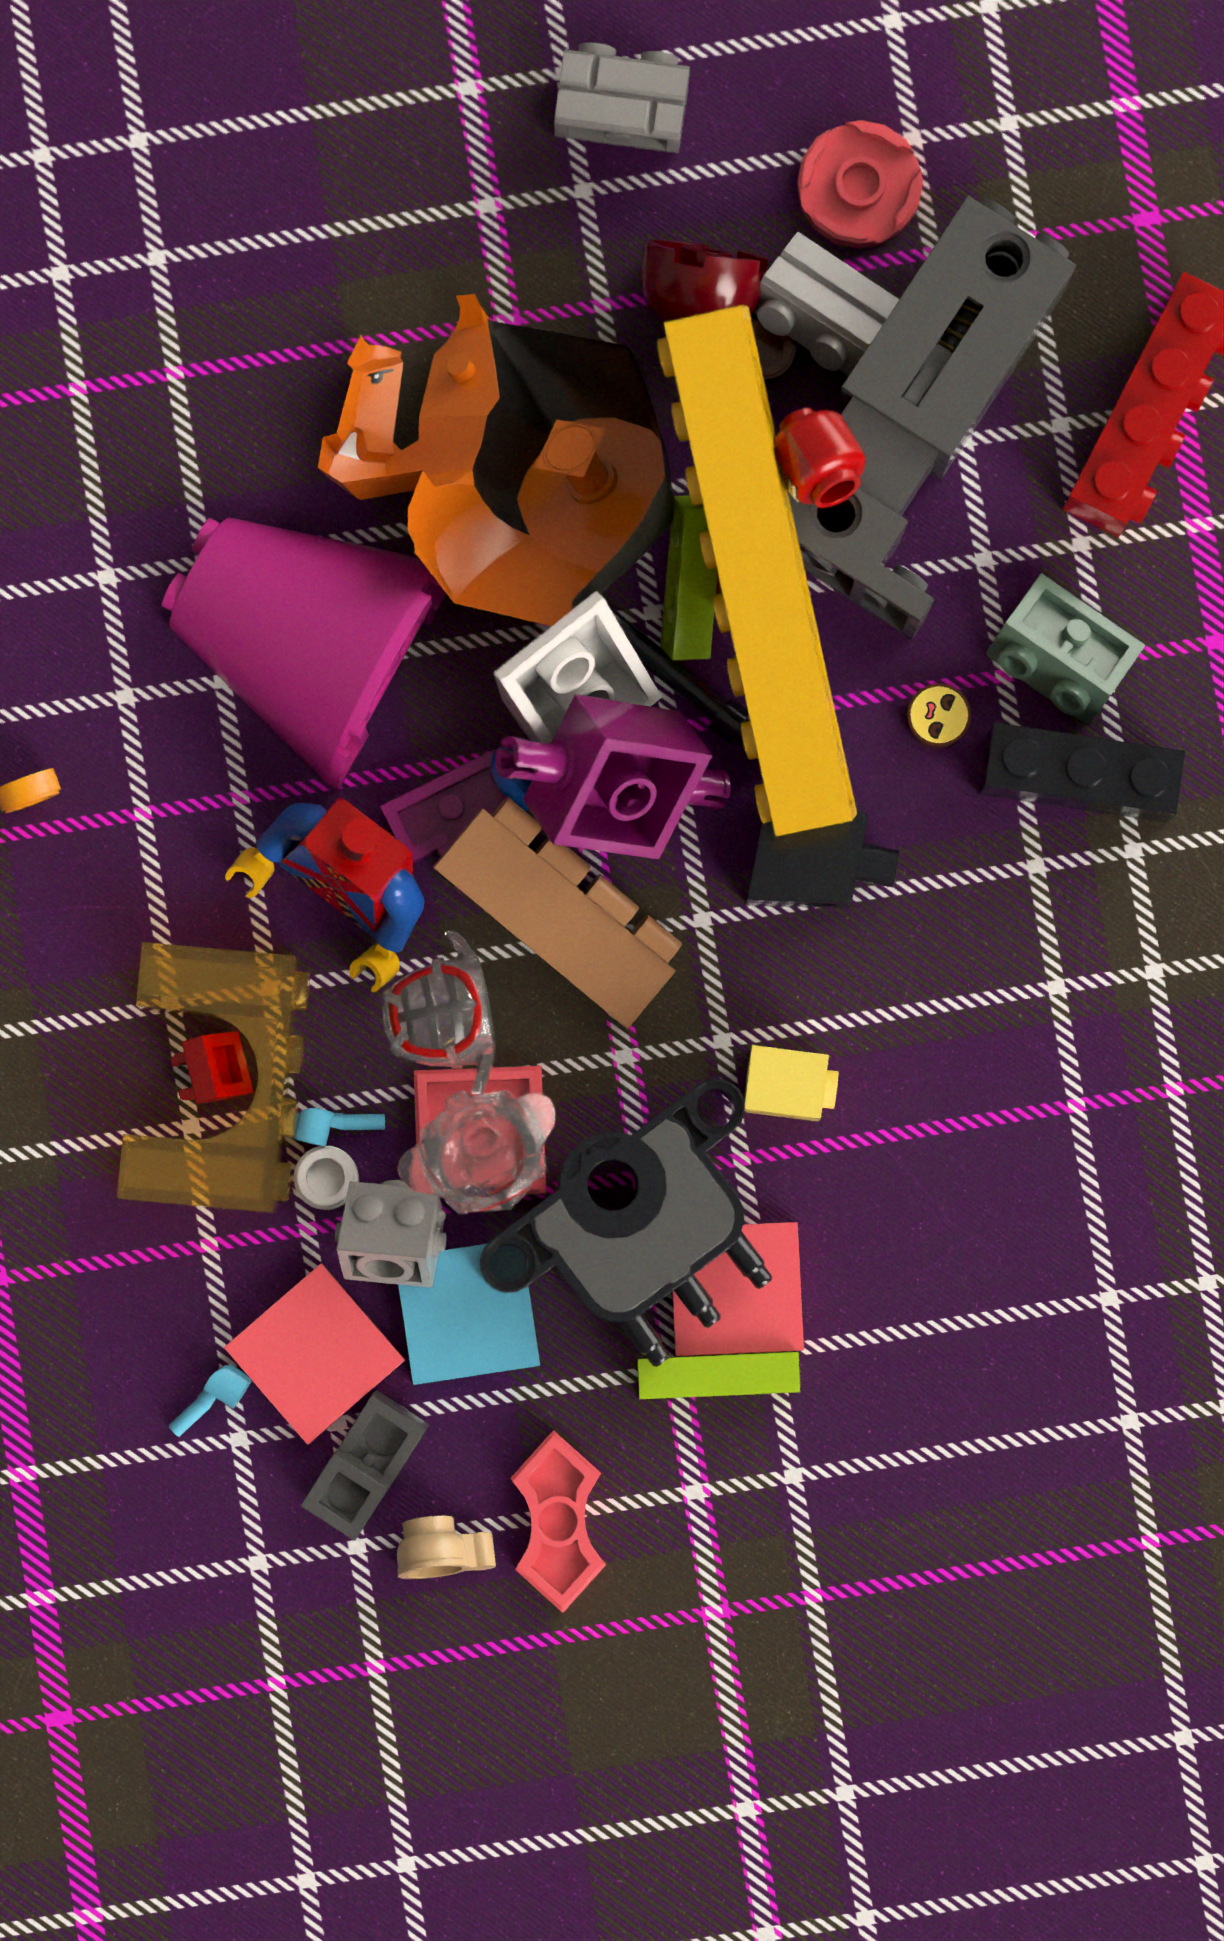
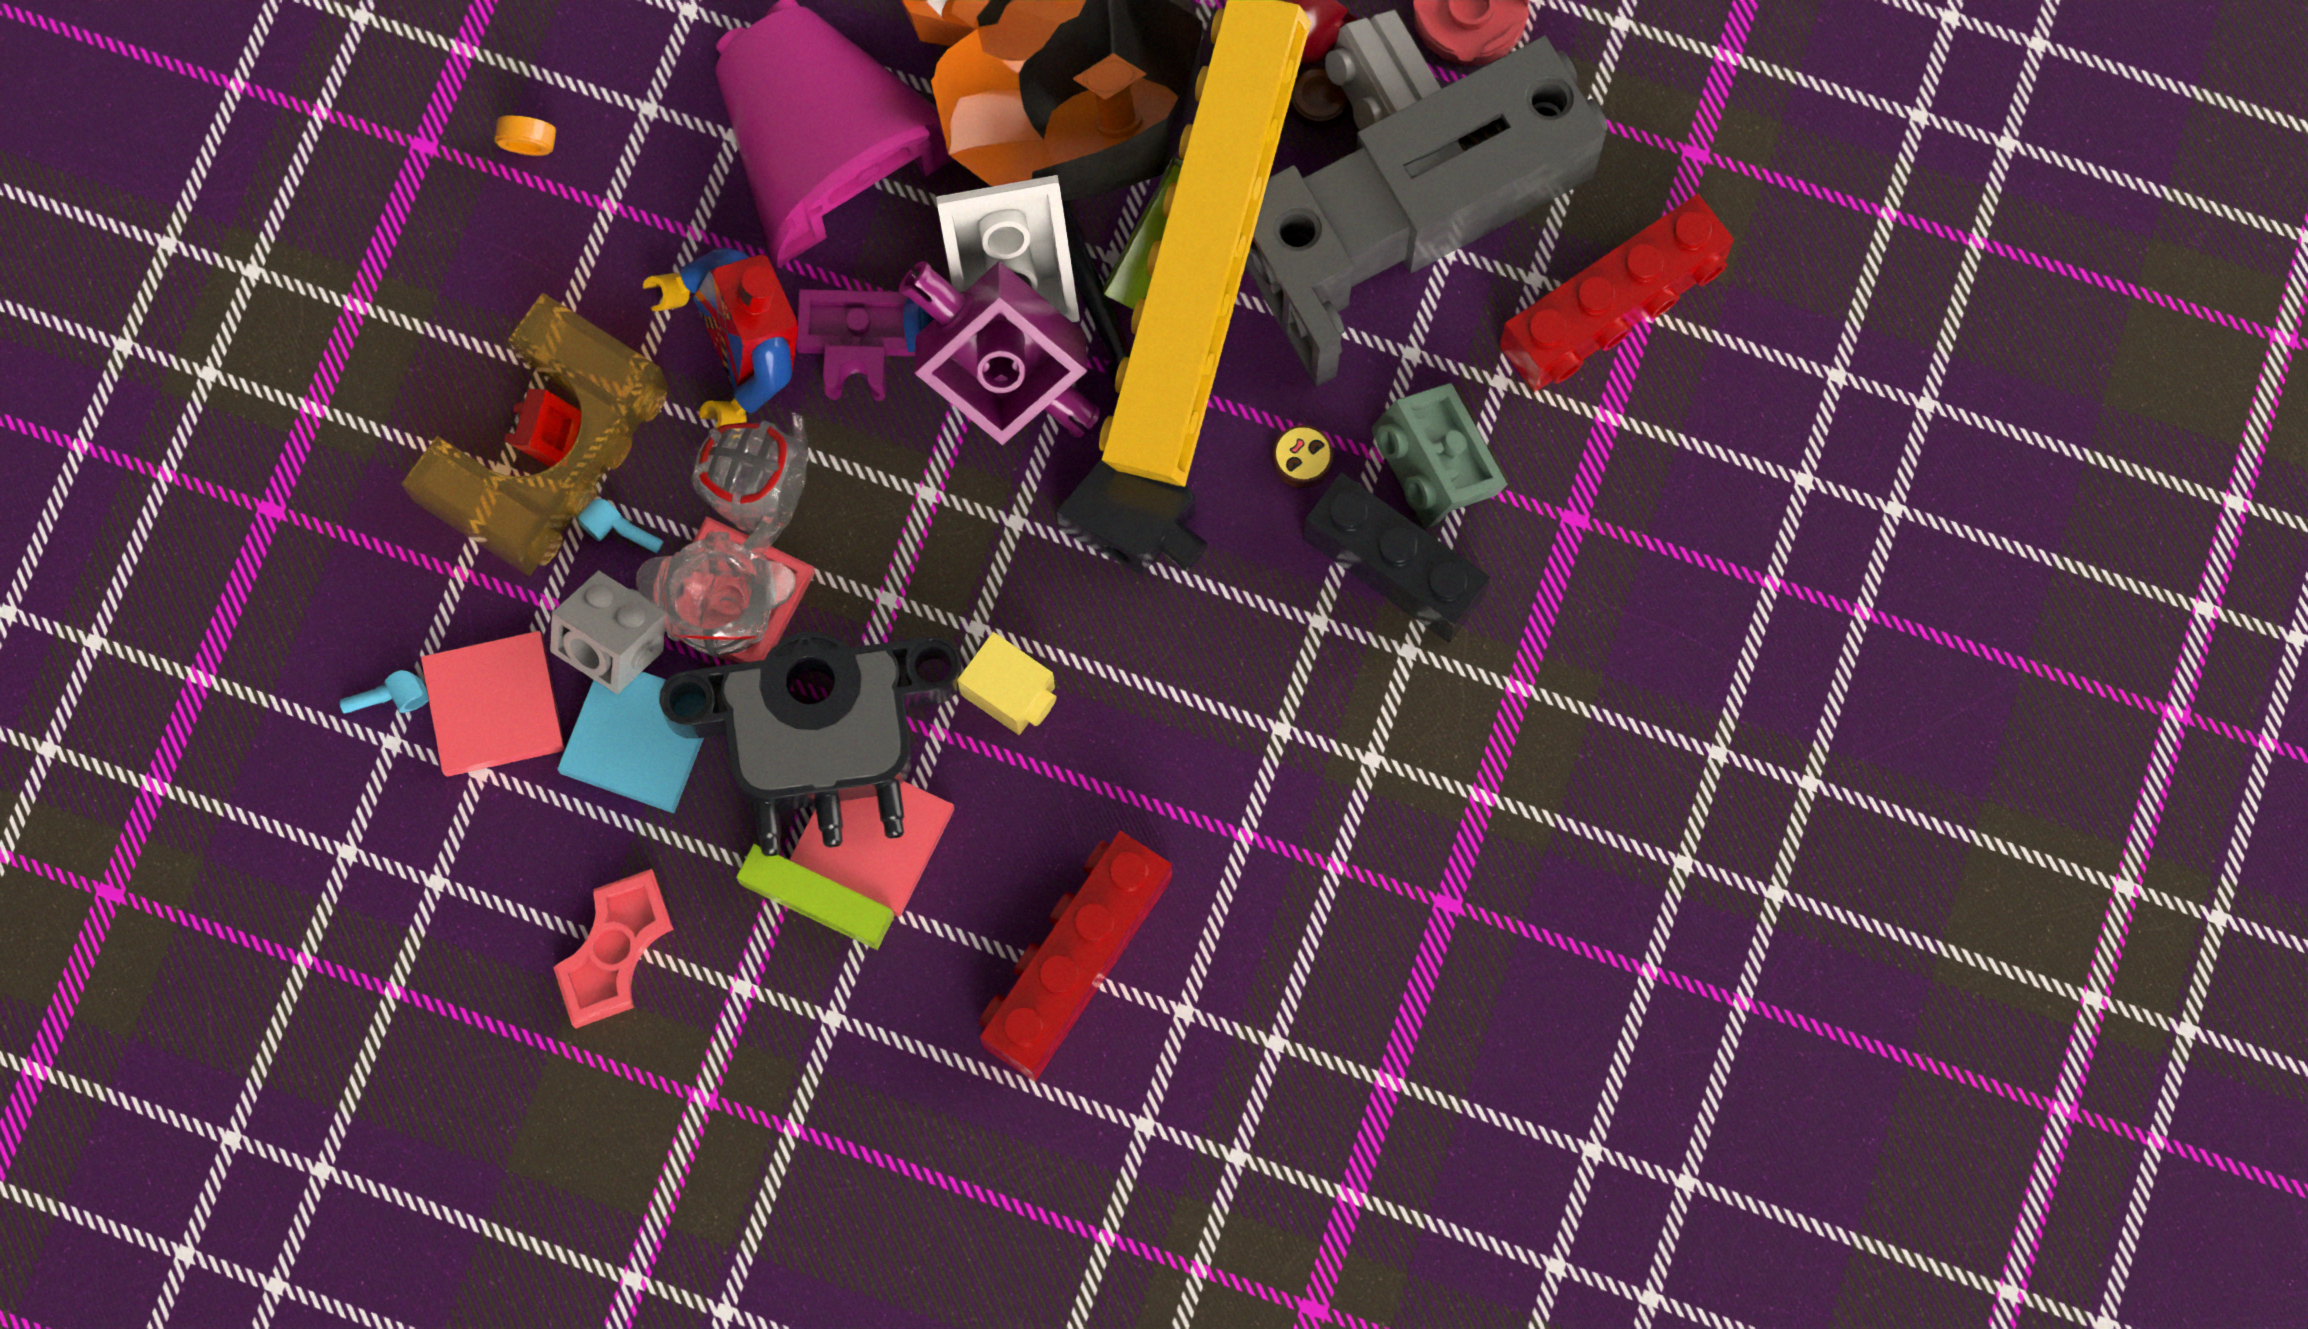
camera: 30 degrees right, 10 degrees down
(324, 1177) = (581, 559): white tile -> none
(365, 1465) = (480, 817): dark grey slope -> none
(435, 1549) = (497, 918): tan piece -> none
(568, 928) = (887, 442): medium nougat windscreen -> none
(818, 457) = (1303, 170): red head -> none
(991, 1304) = (1076, 955): none -> red brick

